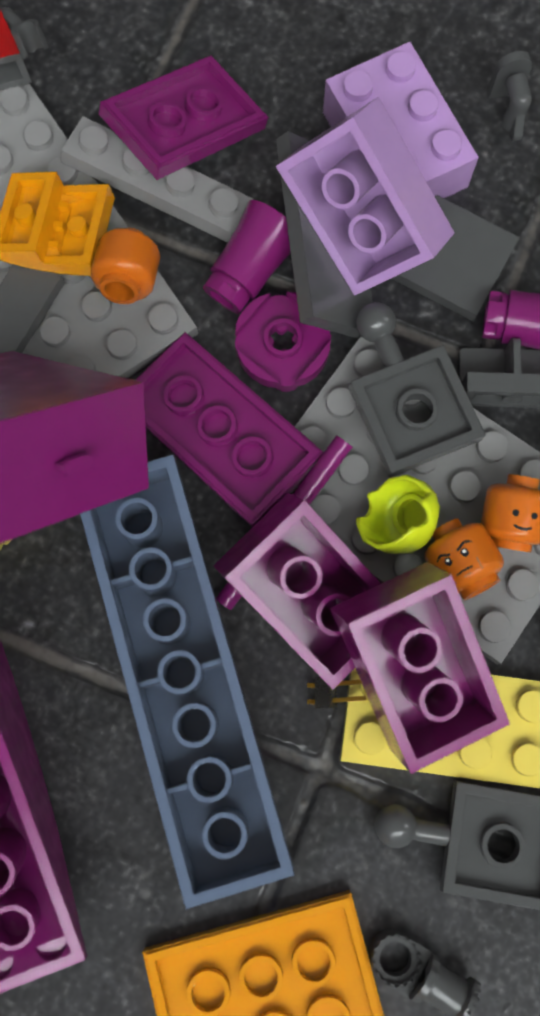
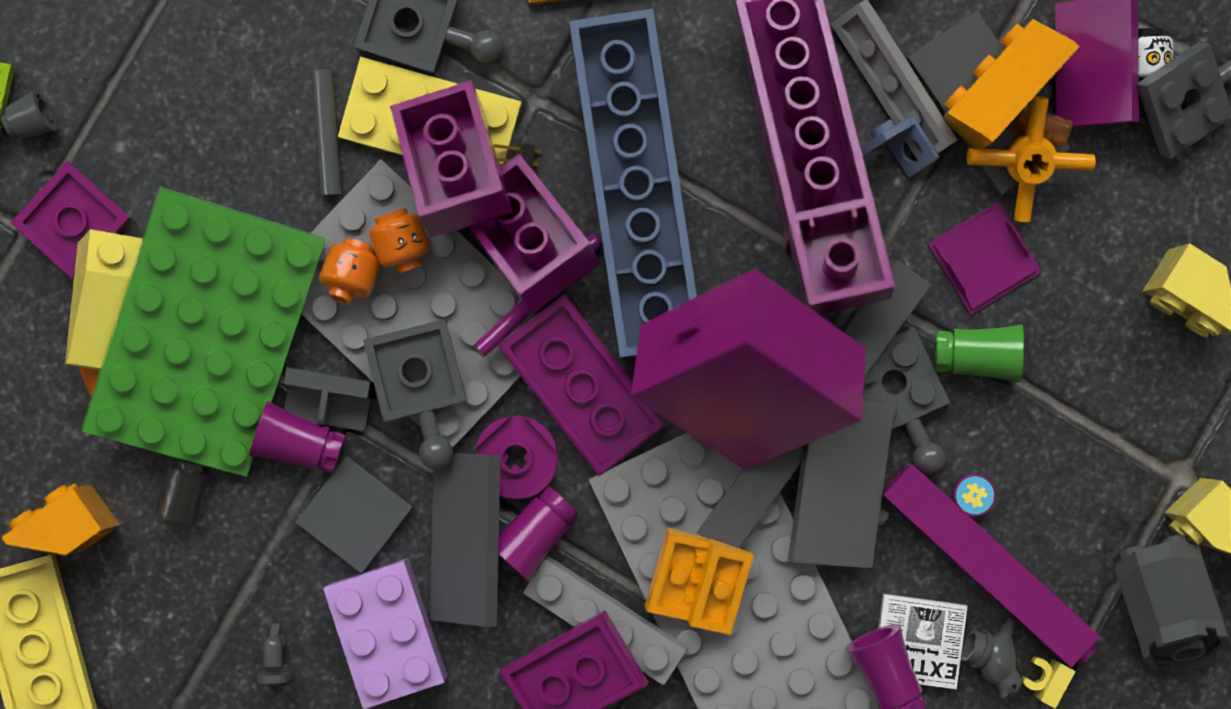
camera: 175 degrees left, 10 degrees up
(125, 265) = (640, 532): orange head -> none
(366, 198) = (428, 552): lavender brick -> none
(400, 515) = (445, 282): neon yellow hair -> none

